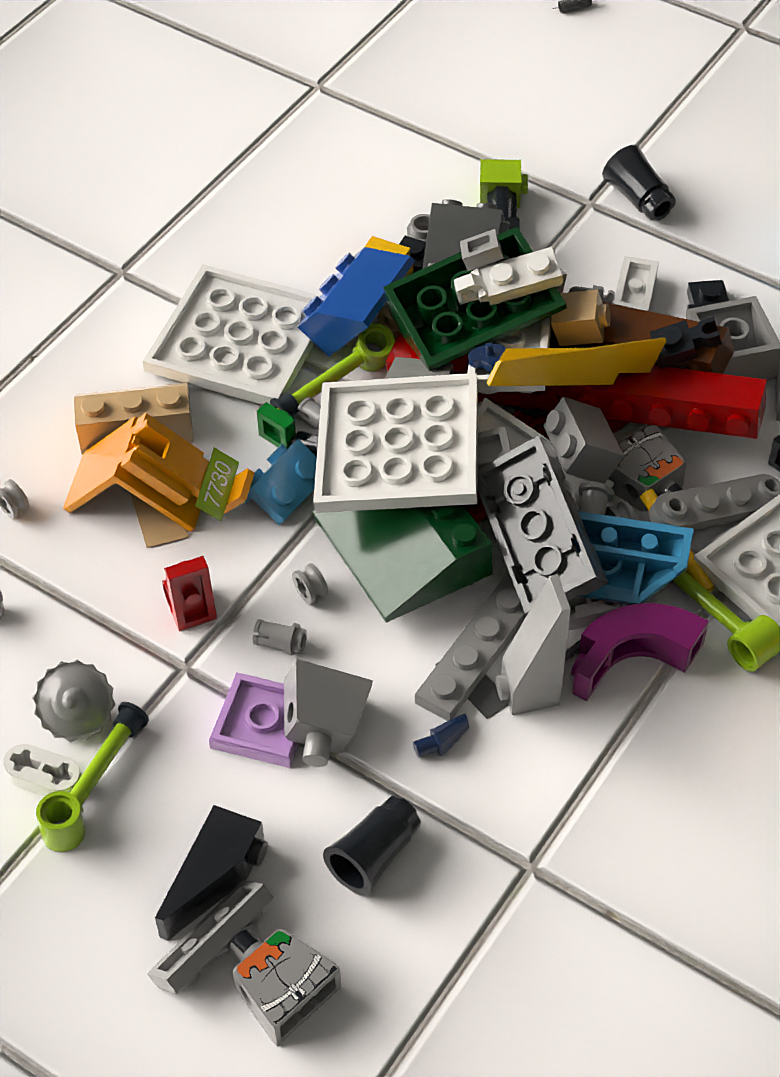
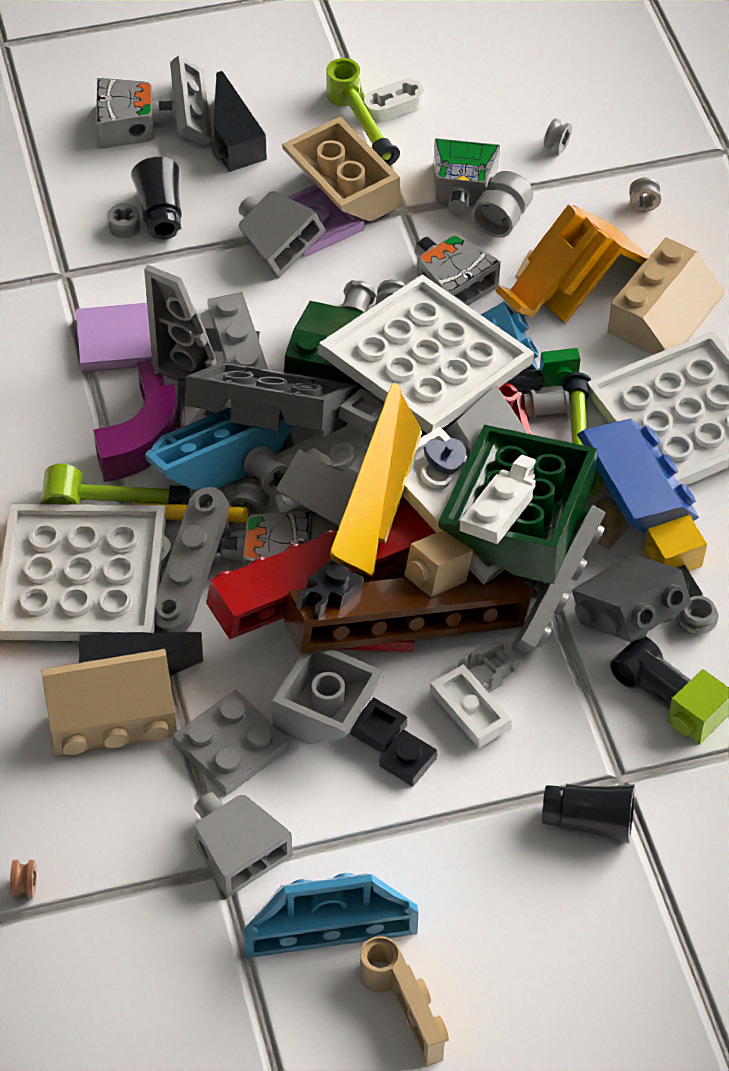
camera: 130 degrees right, 0 degrees up
(73, 701) = (423, 127): light grey piece -> none
(107, 632) = (463, 172): none -> torso
(138, 574) = (502, 204): none -> light grey wheel
(189, 593) = (447, 217): red plate -> none
(201, 709) = (346, 169): none -> tan slope
(217, 484) = (528, 286): lime sticker -> none
(241, 559) = (458, 267): none -> light grey torso
(280, 636) = (361, 261): light grey pin -> none
(344, 602) = (358, 296): none -> light grey bush
(410, 868) = (119, 220): none -> light grey bush
(442, 737) = (197, 287): dark blue bar -> none
(481, 250) = (547, 494): light grey plate -> none
(561, 754) = (113, 336): none -> lavender tile

